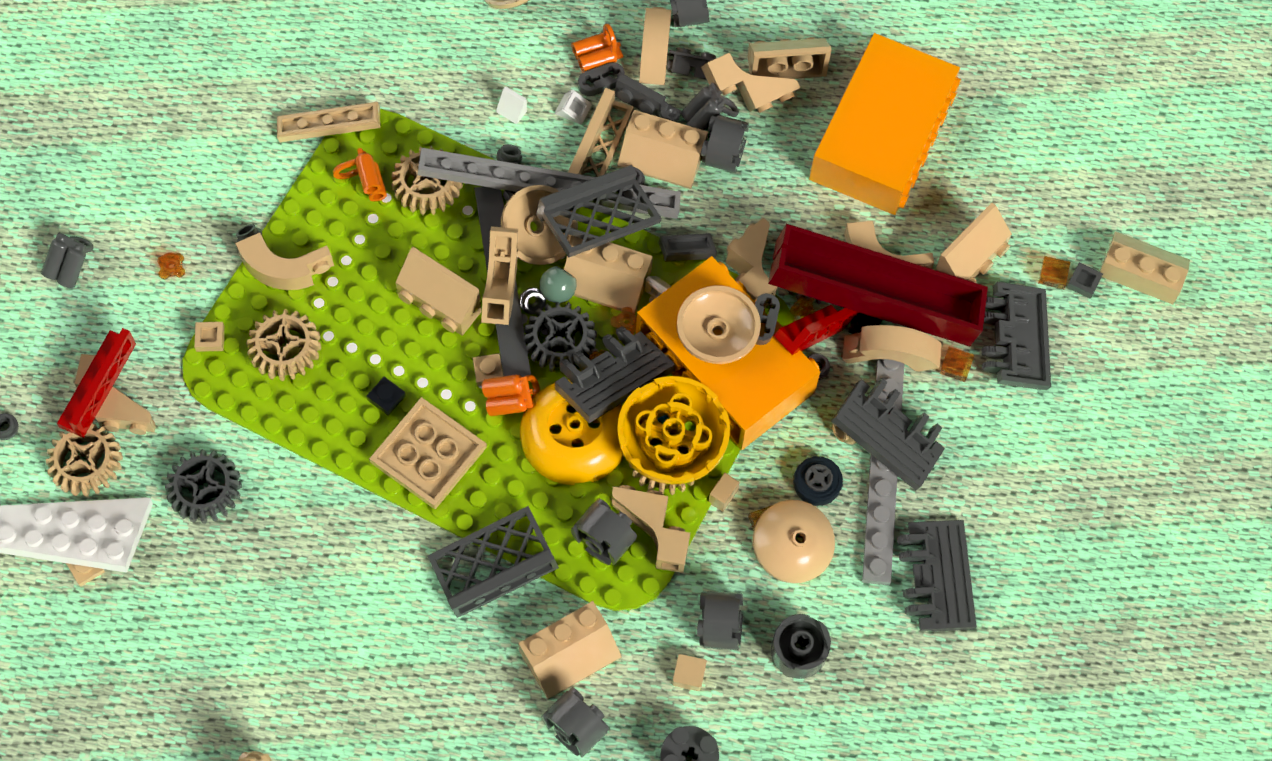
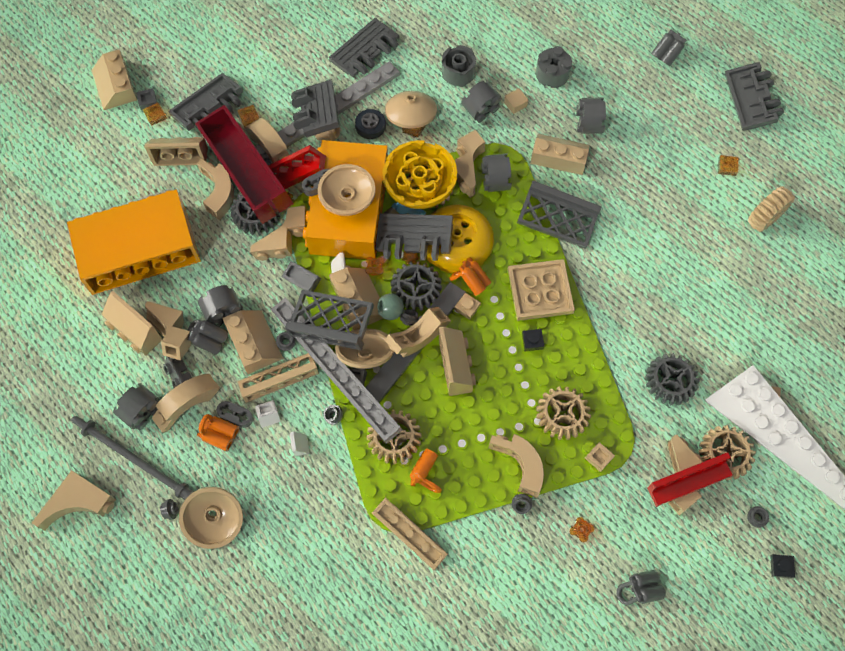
camera: 130 degrees left, 0 degrees up
(645, 99) = (228, 374): dark grey hinge -> none

